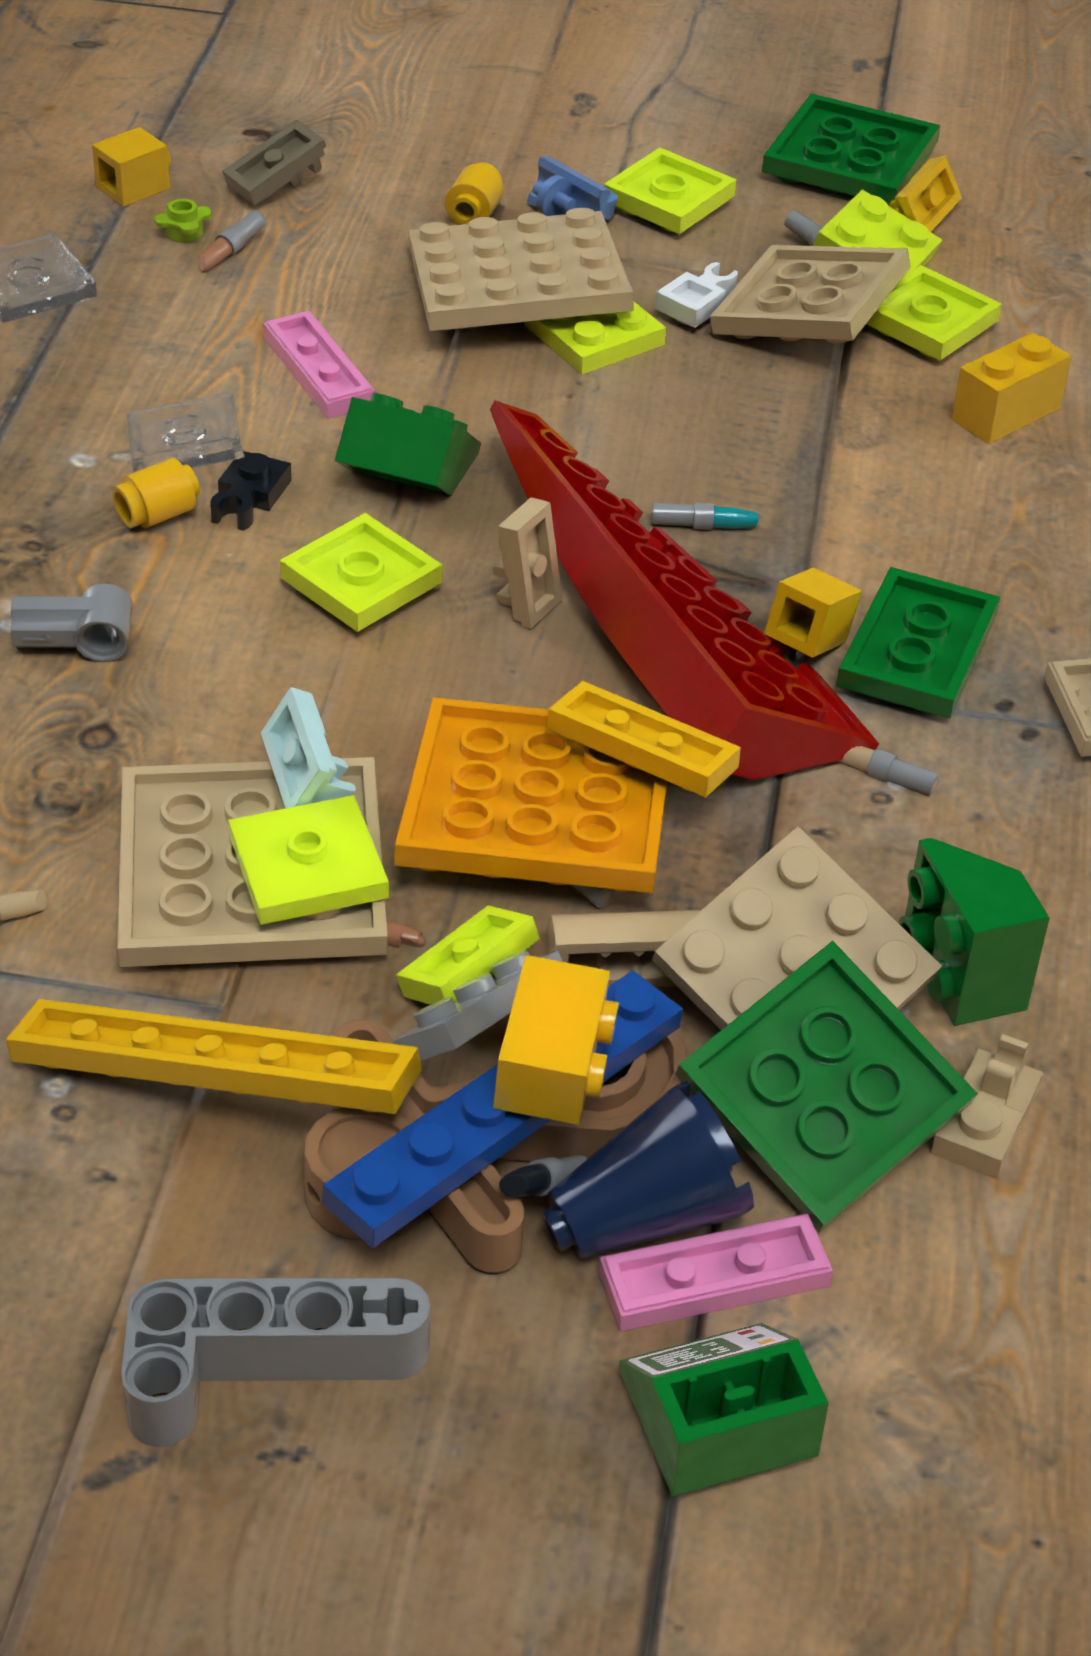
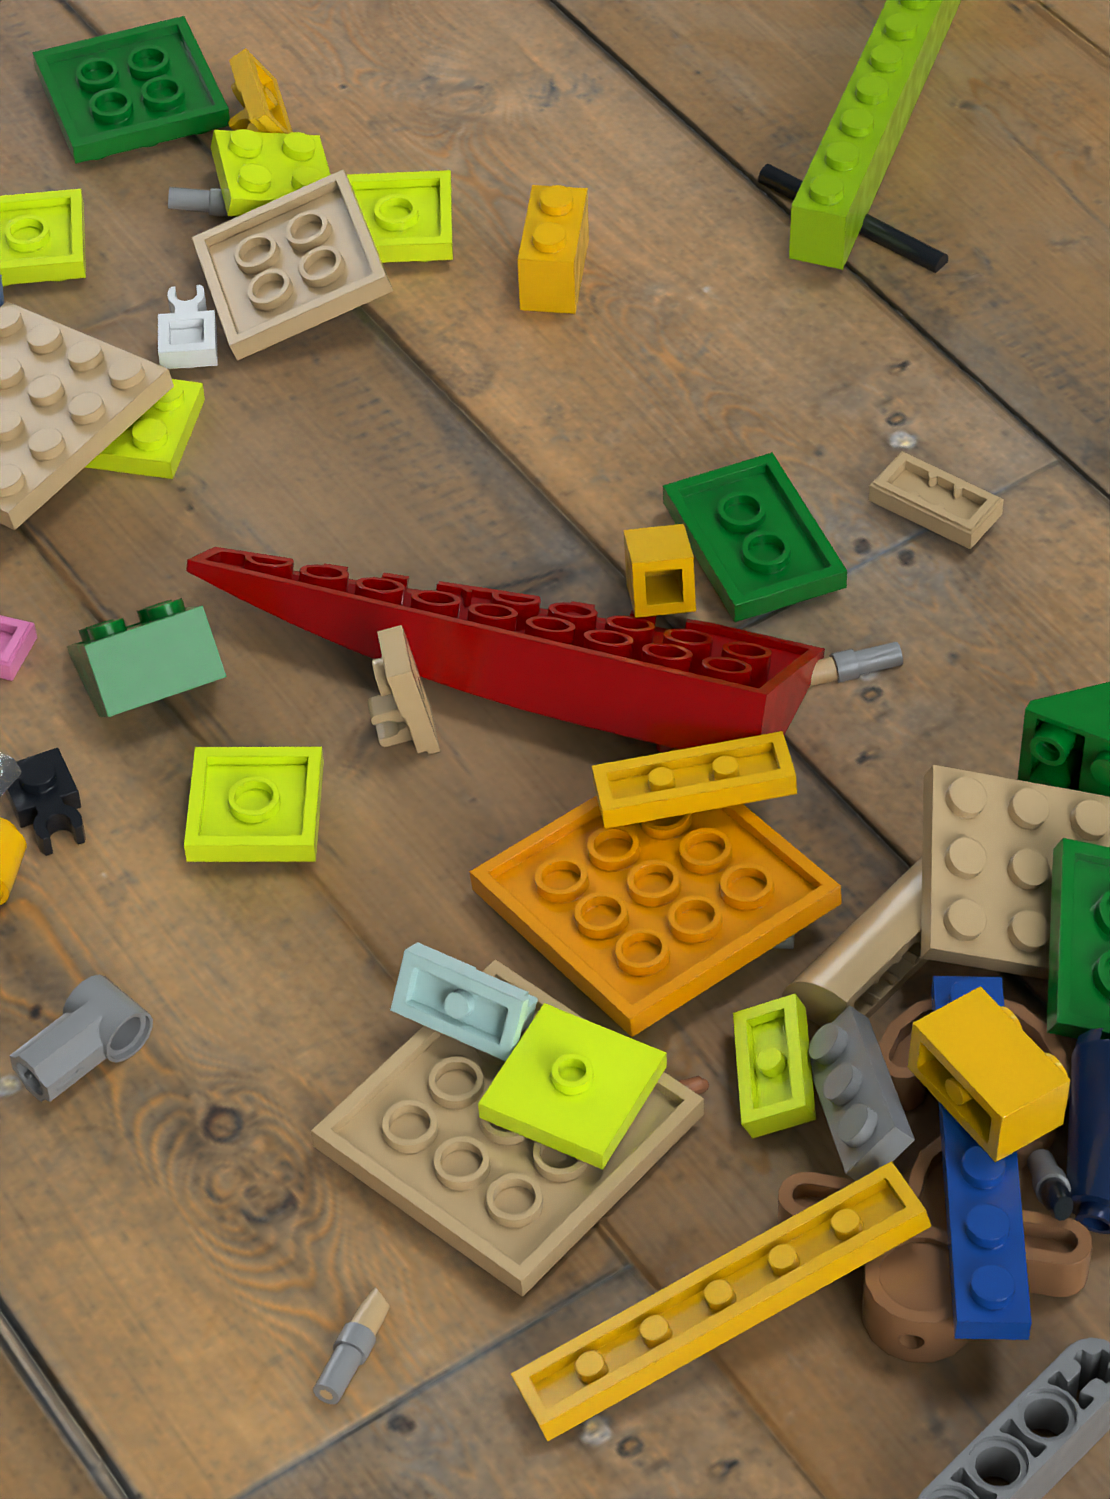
camera: 40 degrees left, 5 degrees up
(703, 516) = (448, 545): light grey piece -> none

